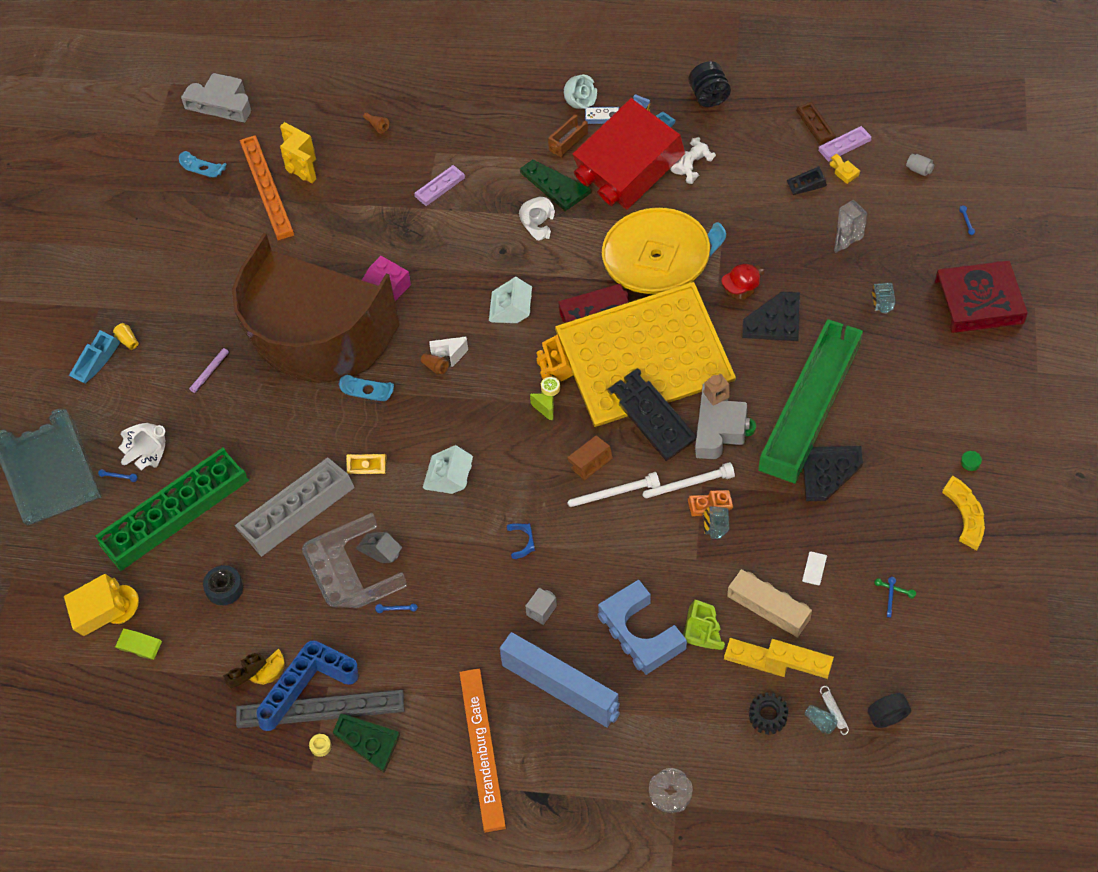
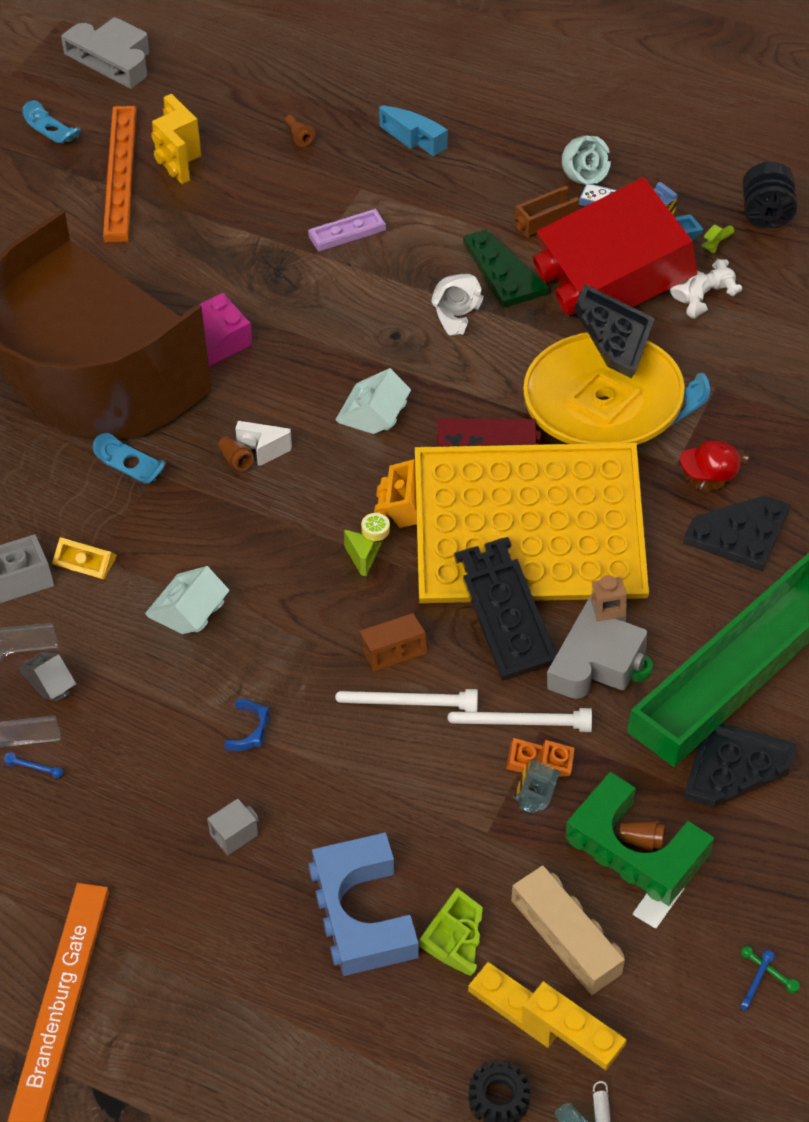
camera: 15 degrees right, 5 degrees down
(454, 100) = (414, 129): none -> dark azure slope
(560, 679) = (210, 941): medium blue brick -> none
(650, 207) = (614, 328): none -> black plate
(684, 122) = (715, 235): none -> lime bar
(792, 530) = (646, 834): none -> dark orange cone
(807, 552) = (658, 873): none -> green arch

